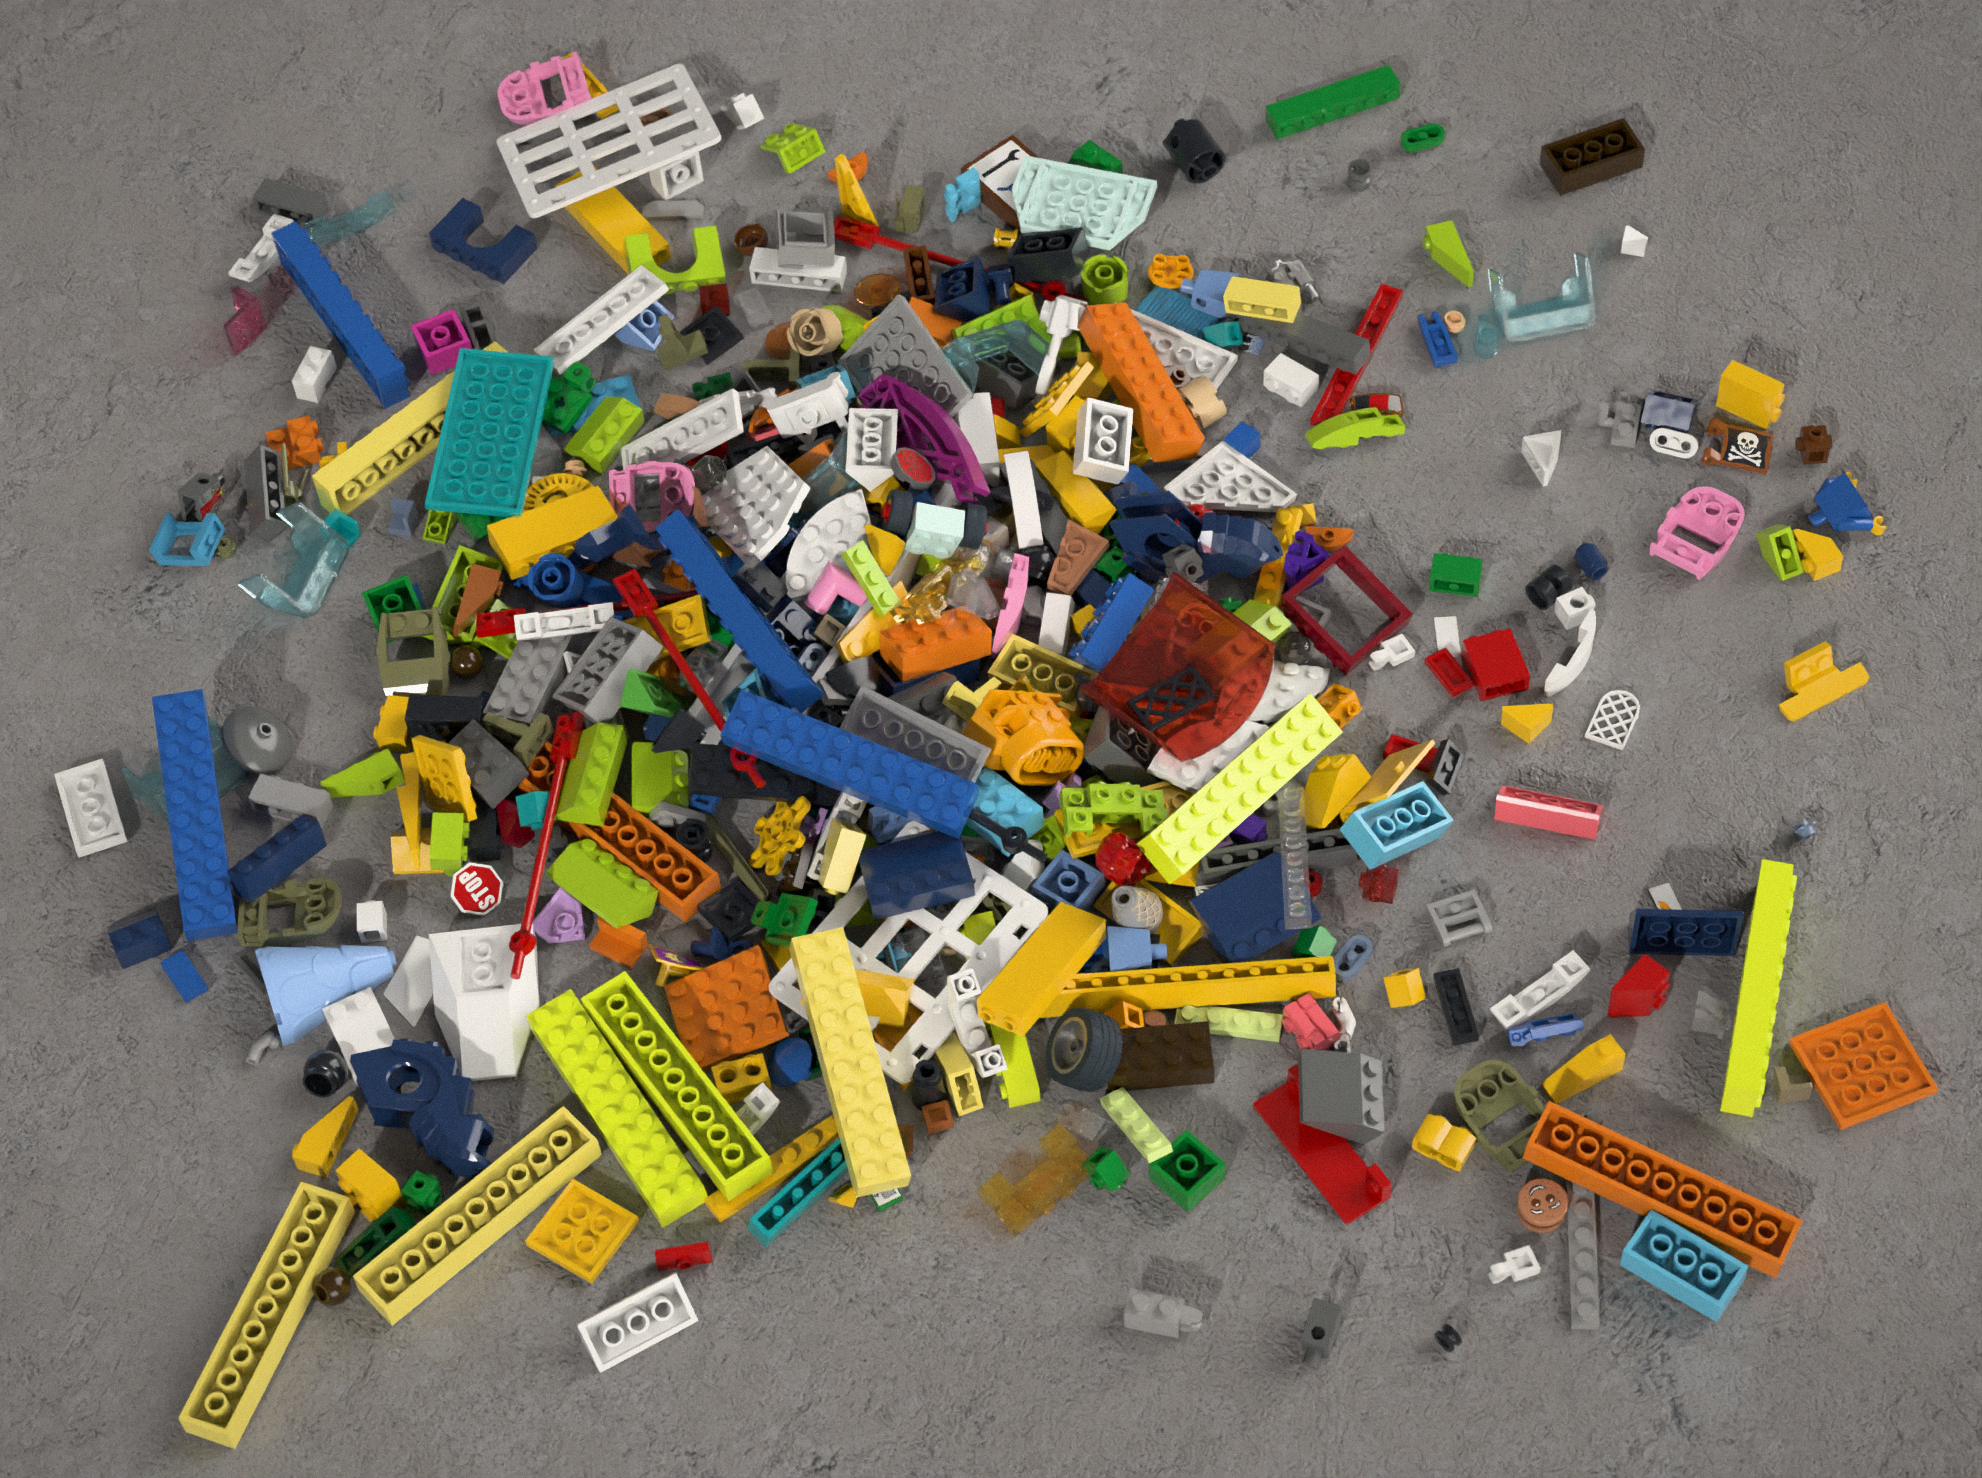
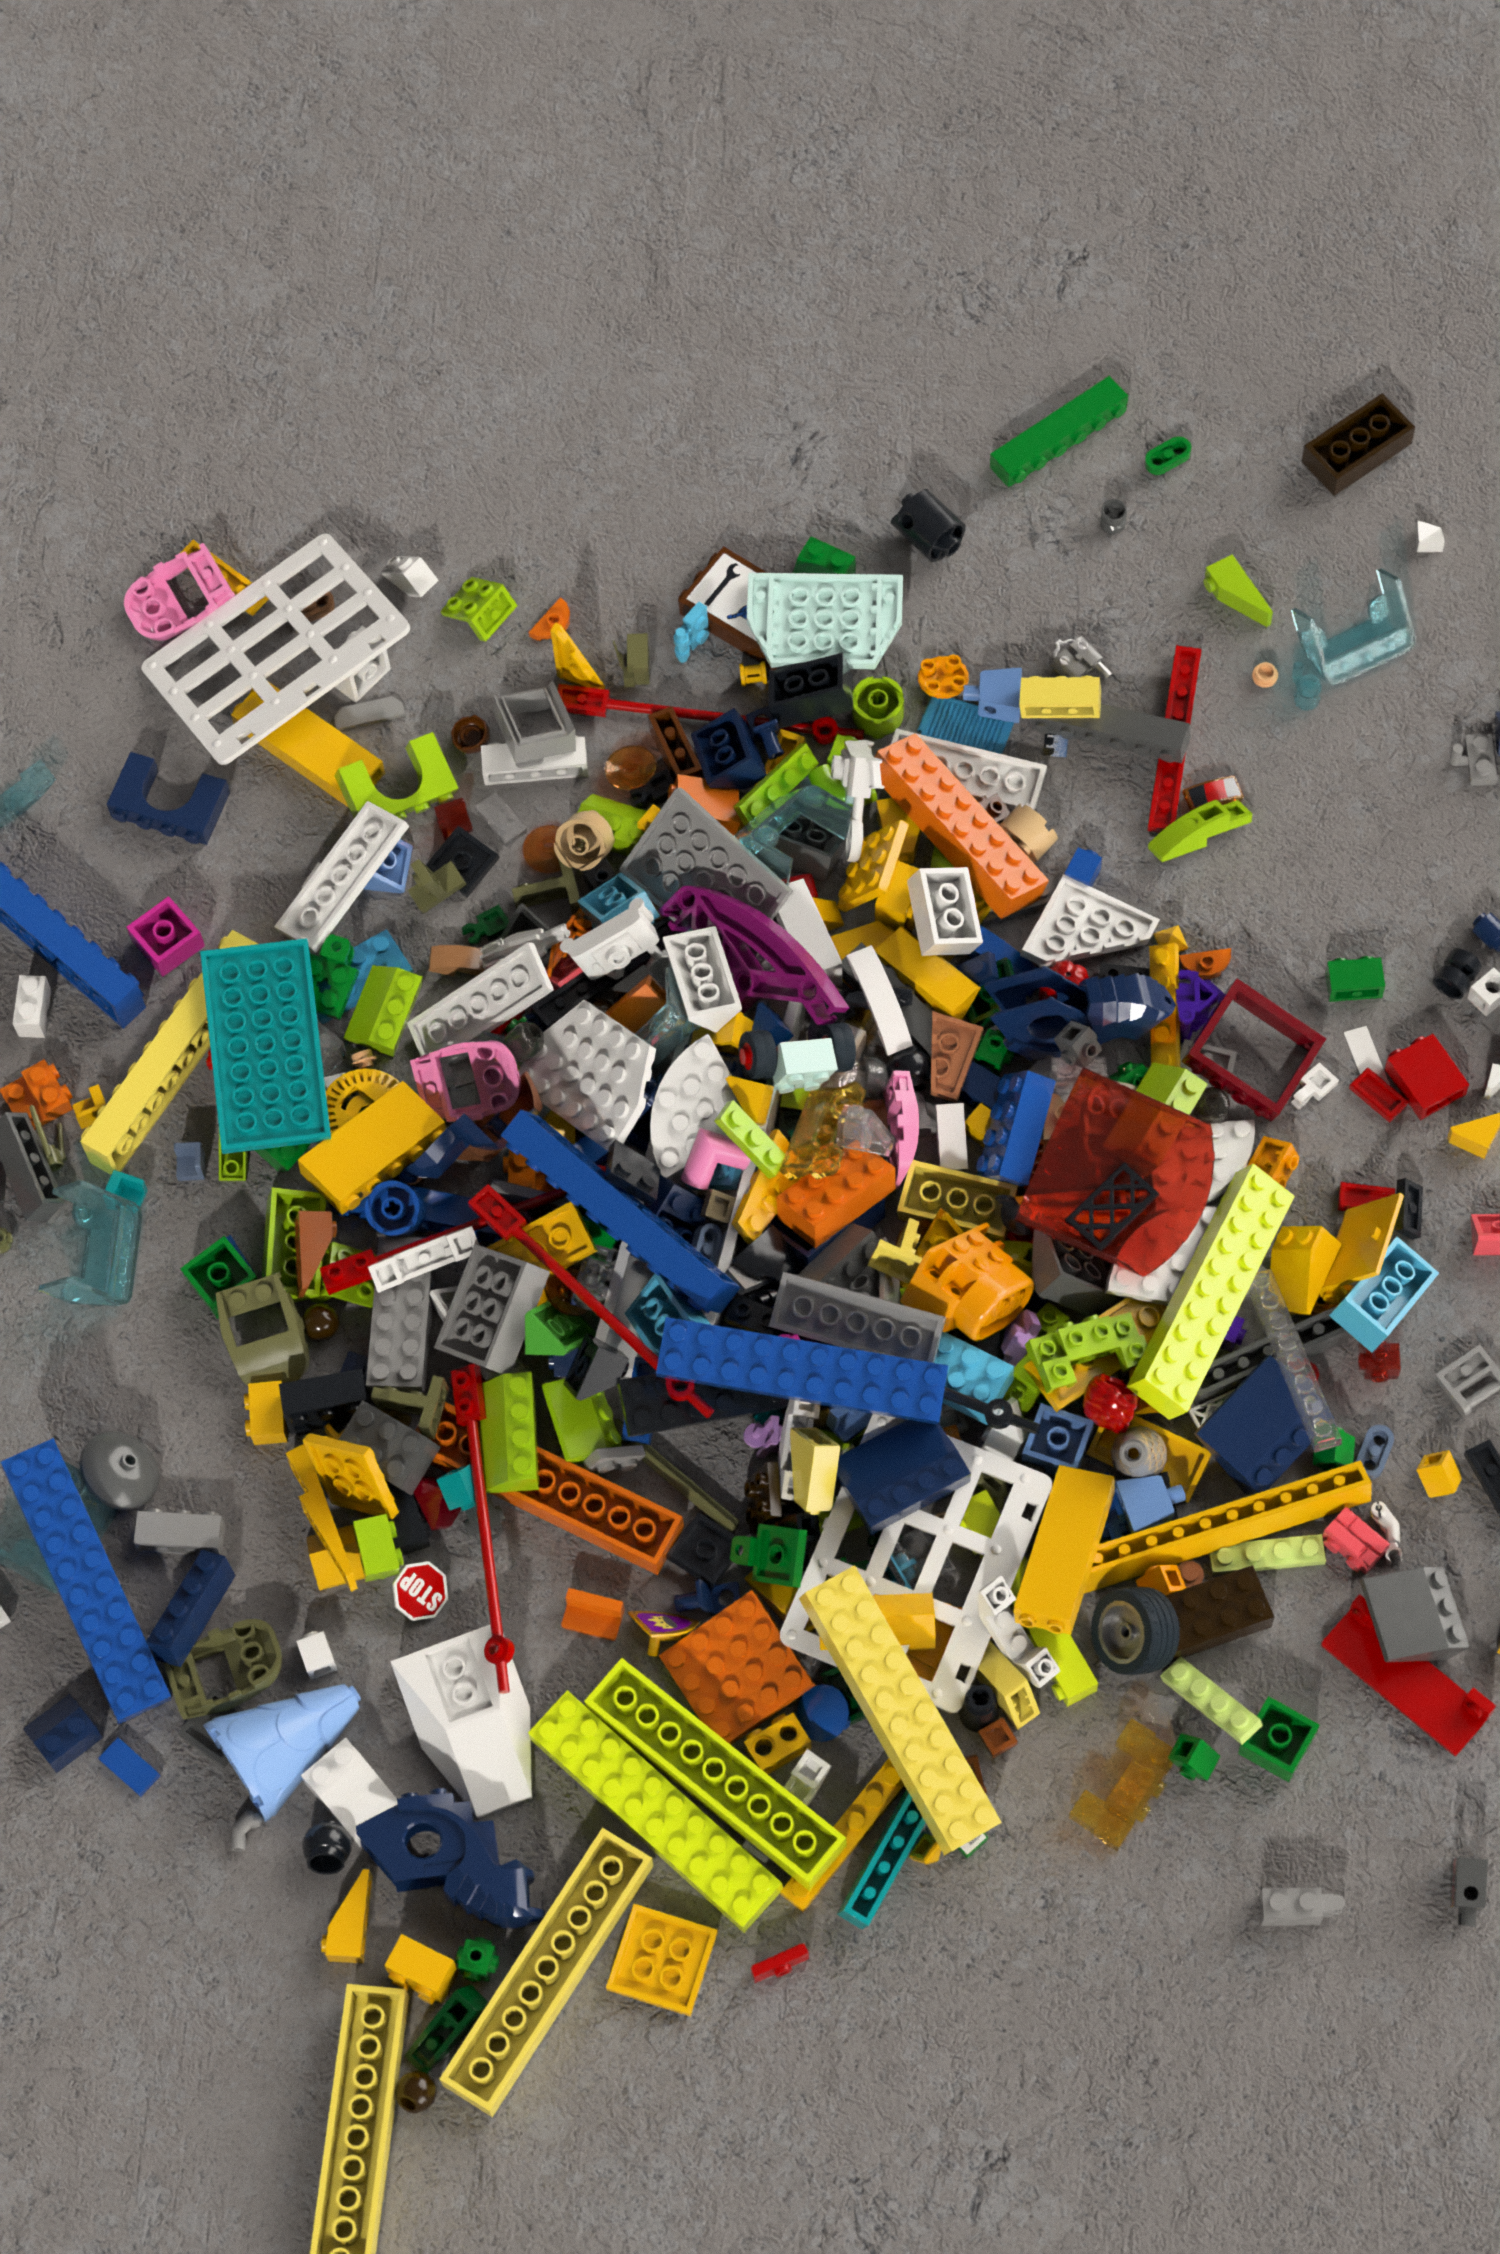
camera: 15 degrees left, 10 degrees up
(369, 777) = (258, 1483): lime slope -> none
(412, 982) = (382, 1710): white sticker -> none
(477, 325) = (202, 912): dark grey slope -> none
(560, 919) = (524, 1604): lavender plate -> none
(603, 883) = (559, 1555): lime slope -> none
(636, 1322) = (756, 2052): white slope -> none
(695, 838) = (641, 1478): black wheel -> none
(779, 835) = (723, 1466): yellow plate -> none
(913, 468) = (759, 999): tile -> none
(1224, 334) = (1024, 743): teal panel -> none
(1291, 380) = (1113, 783): white brick -> none
(1437, 340) = (1254, 700): blue hinge -> none
(1542, 453) = (1405, 816): white slope -> none

